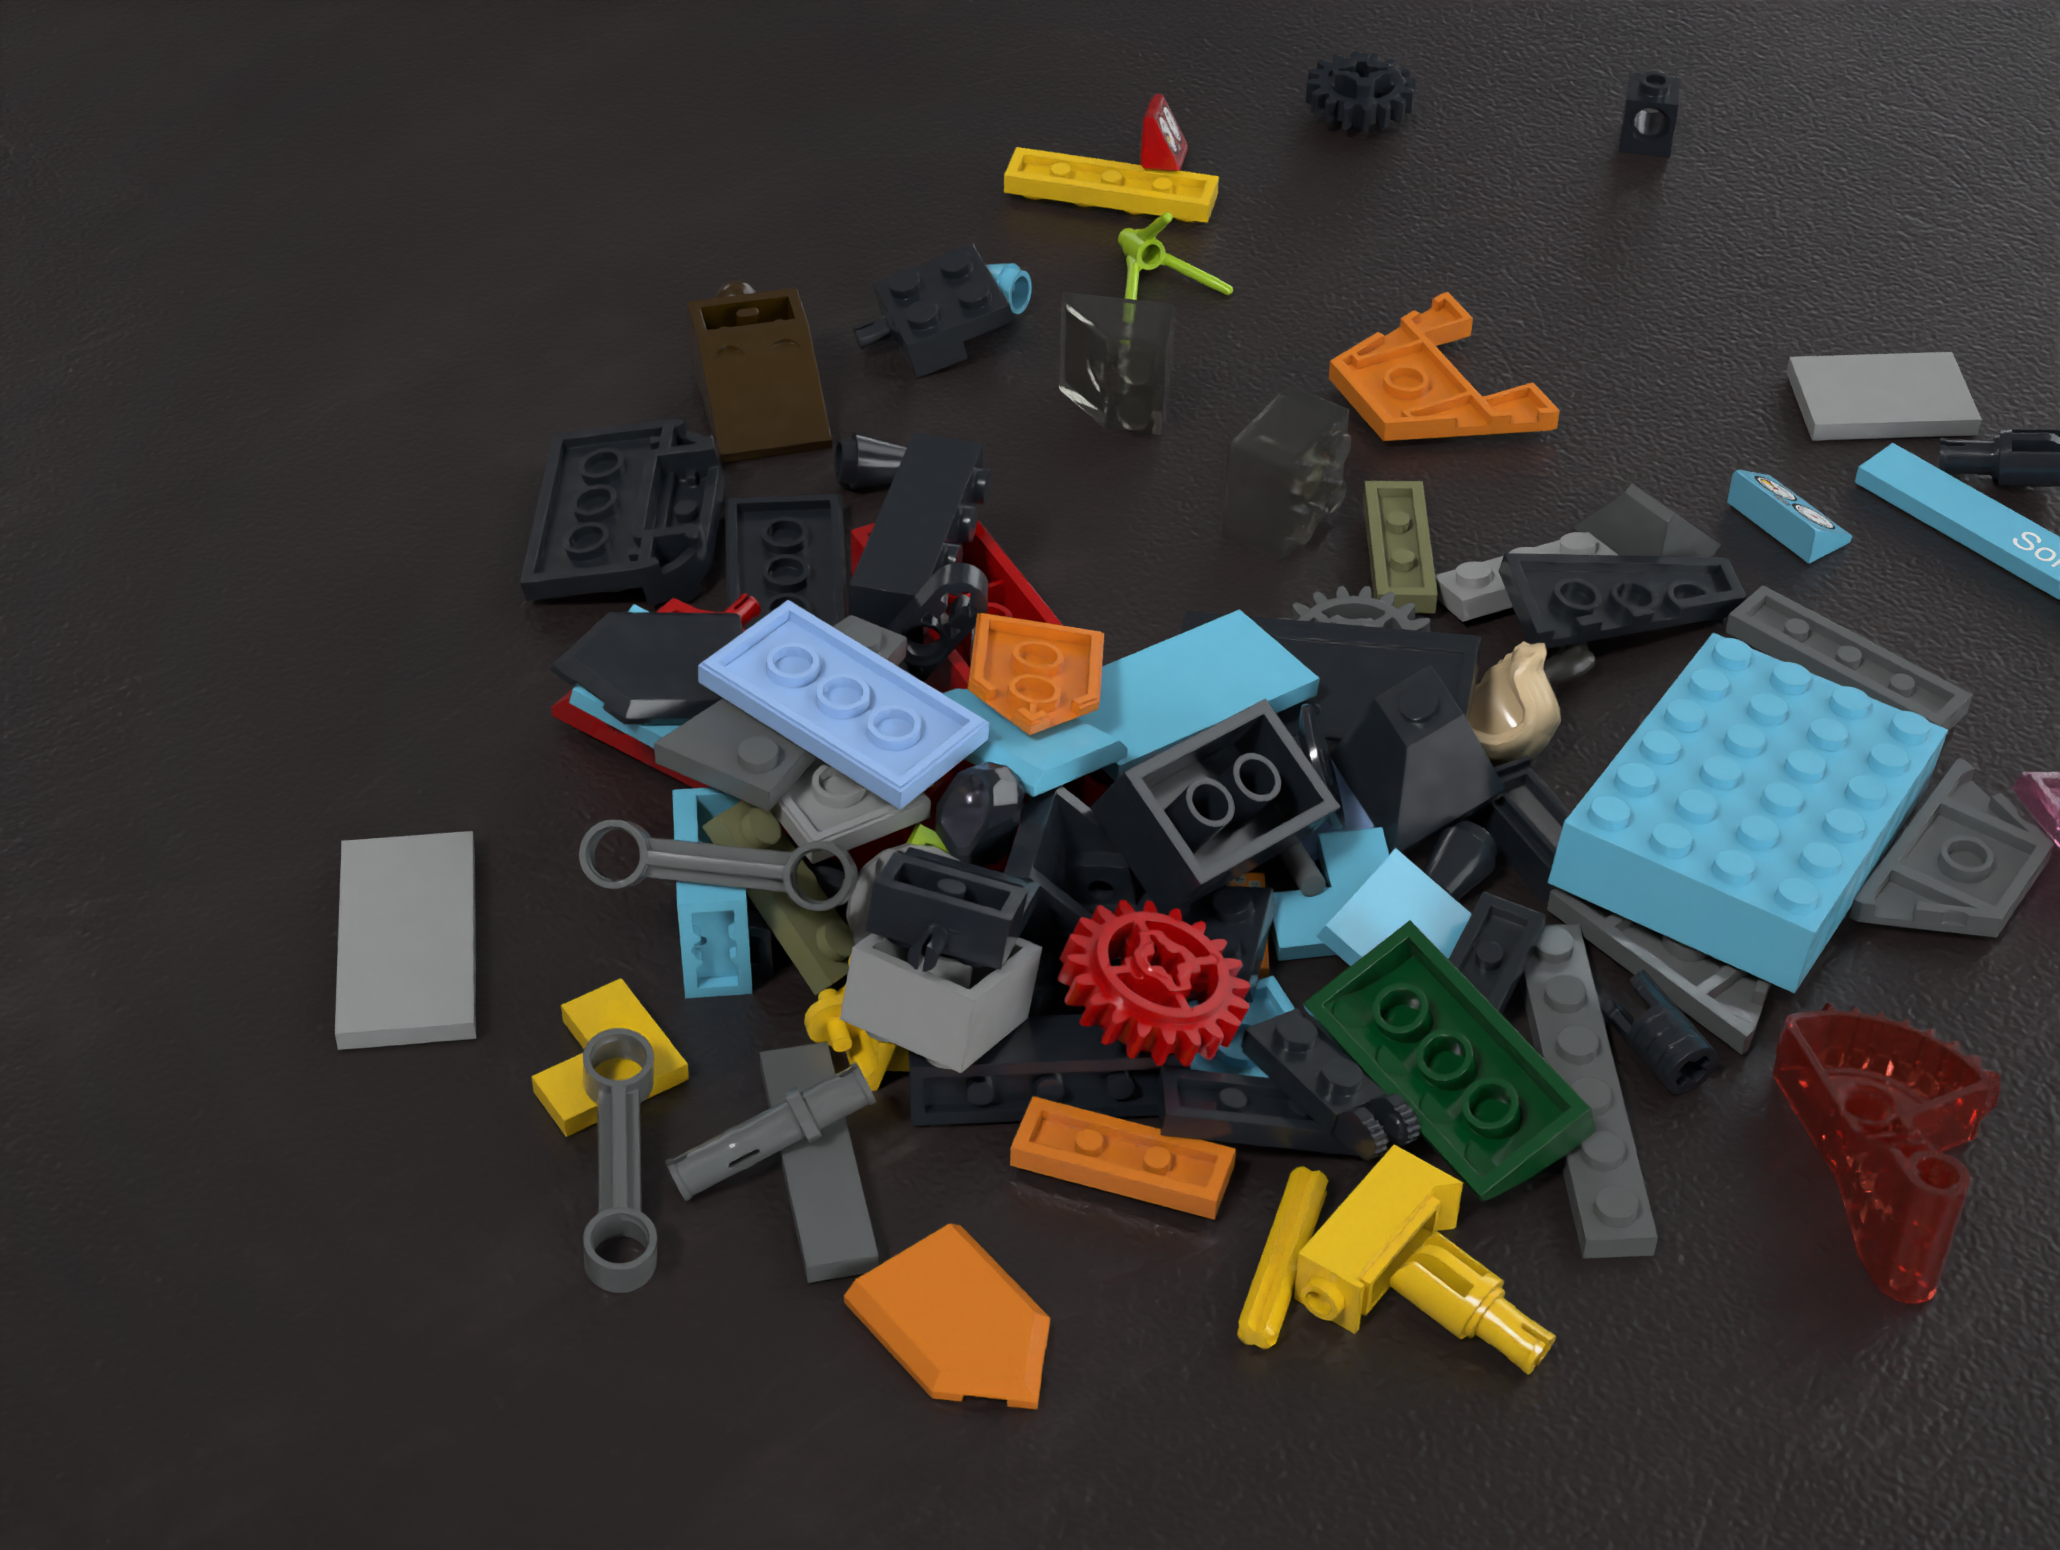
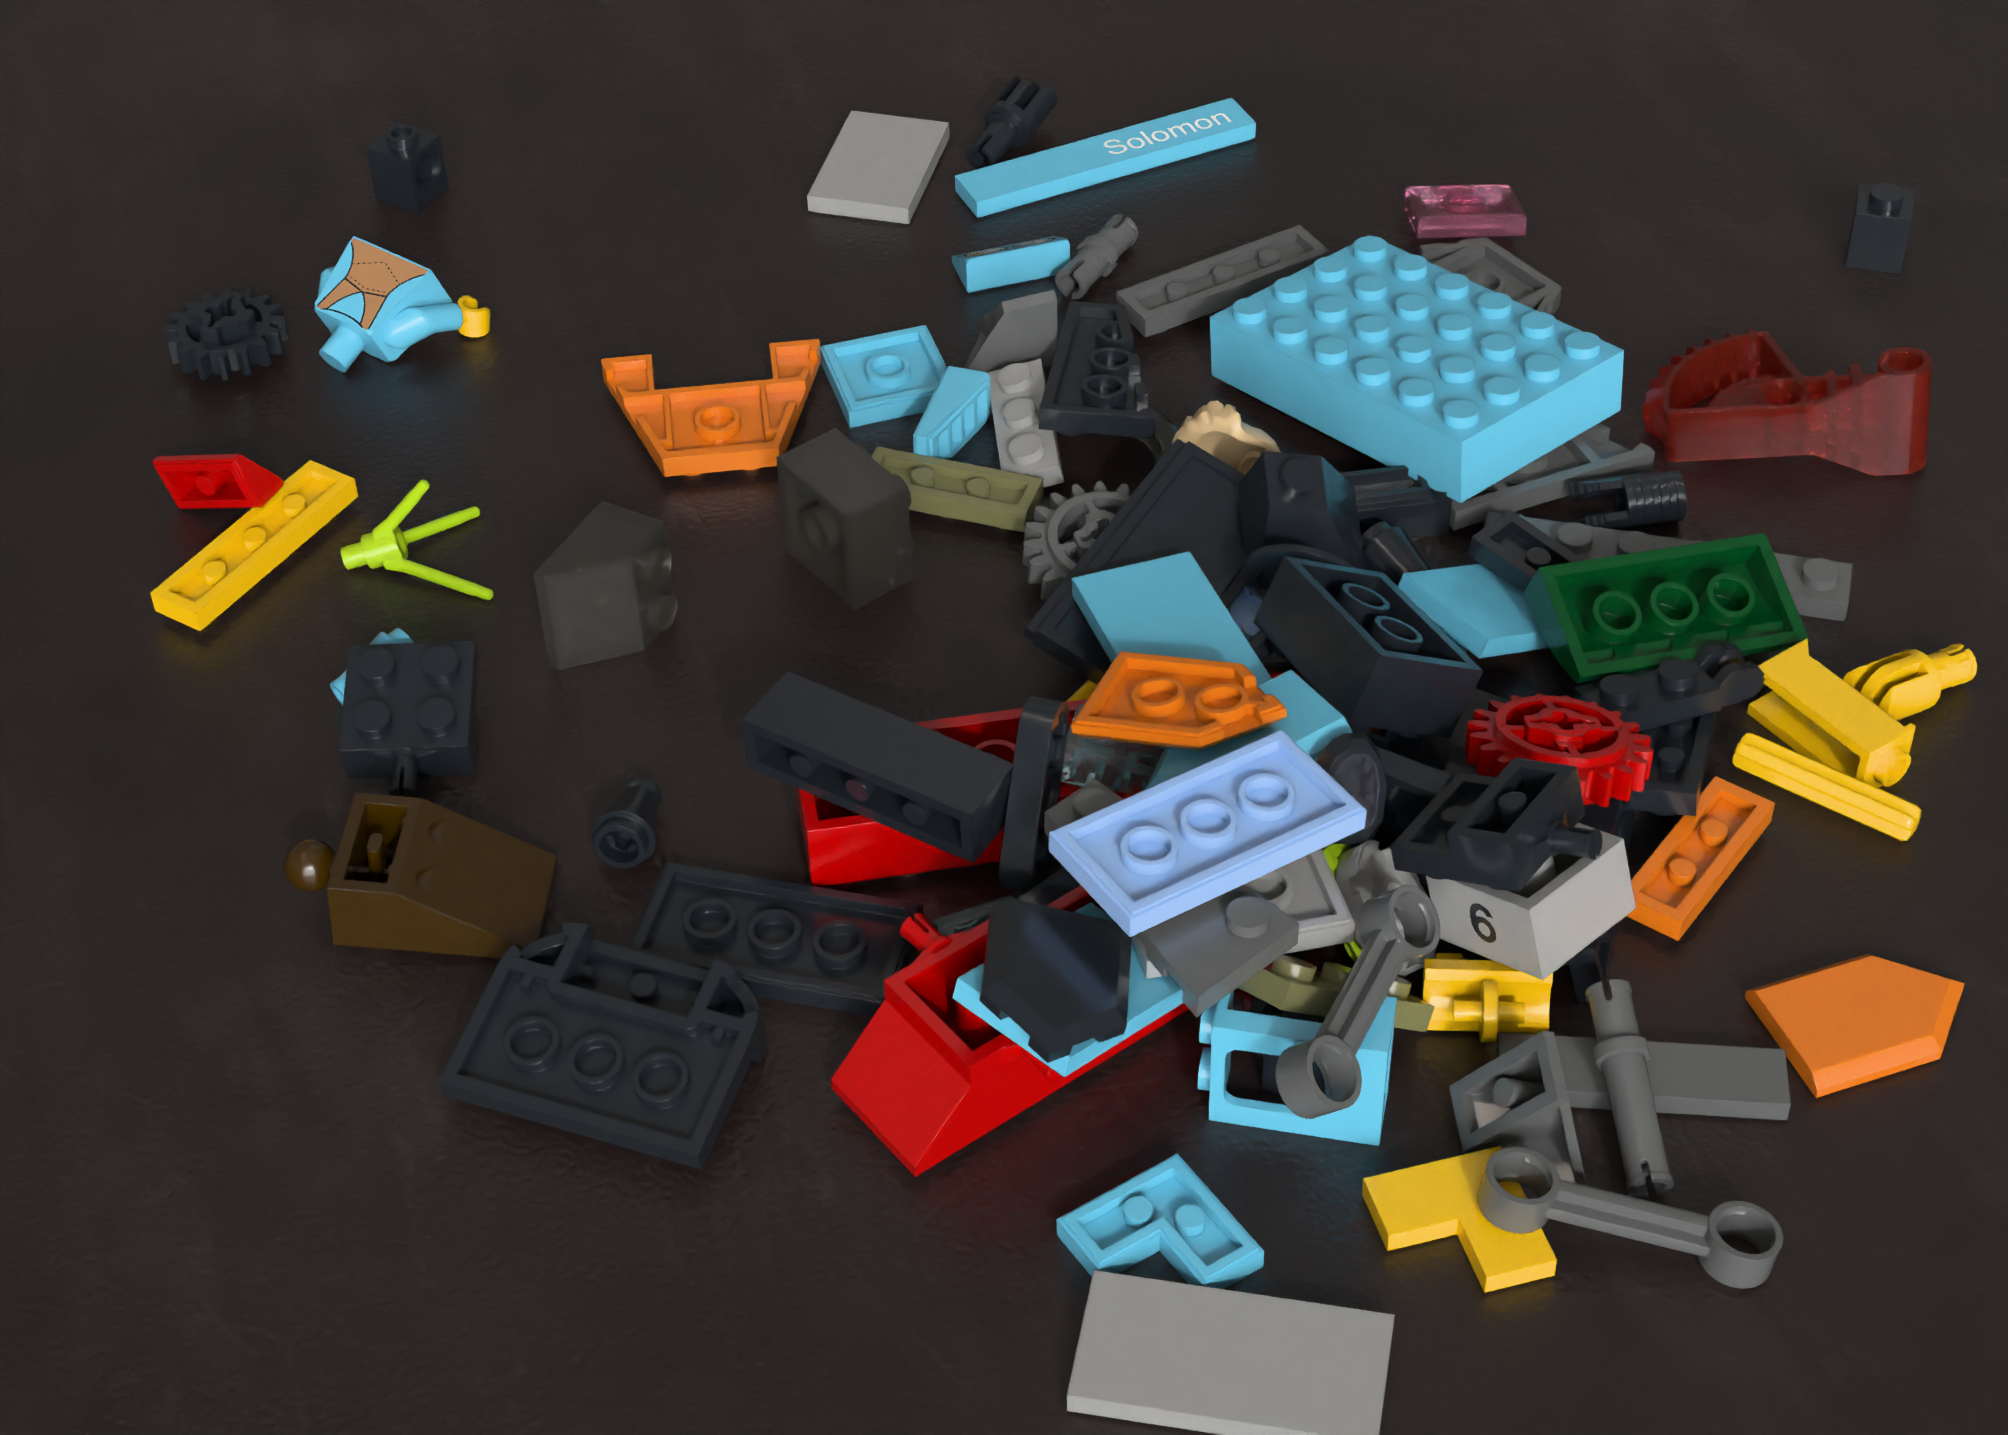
camera: 70 degrees left, 0 degrees up
(545, 874) = (1167, 1213): none -> medium azure tile
(717, 1072) = (1520, 1104): none -> dark grey slope
(1442, 153) = (385, 305): none -> medium azure torso
(1523, 509) = (953, 413): none -> medium azure slope
(1554, 477) = (883, 374): none -> medium azure tile
(1831, 569) = (1096, 256): none -> dark grey pin

